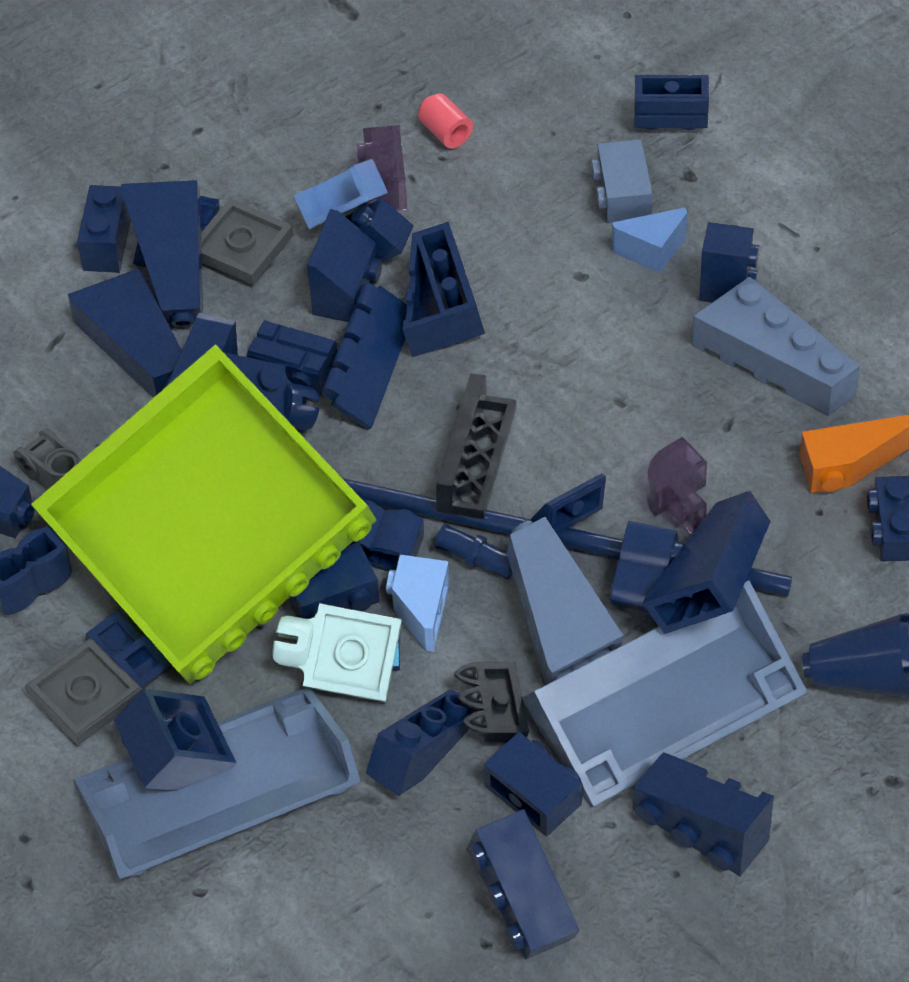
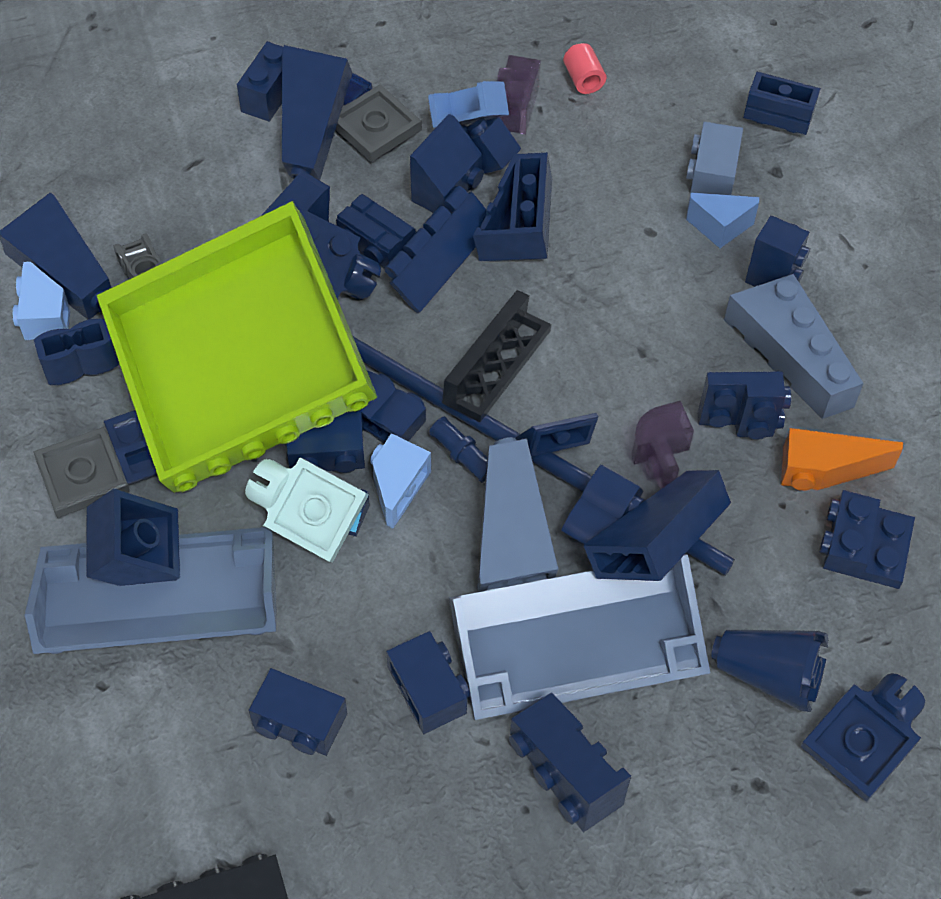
camera: 15 degrees right, 5 degrees up
(128, 328) = (251, 164): dark blue slope -> none
(415, 851) = (297, 713): none -> dark blue brick
(418, 742) = (342, 609): dark blue slope -> none
(496, 698) = (425, 592): black plate -> none
(522, 885) = (374, 780): dark blue wedge -> none
(748, 418) = (746, 400): none -> dark blue plate

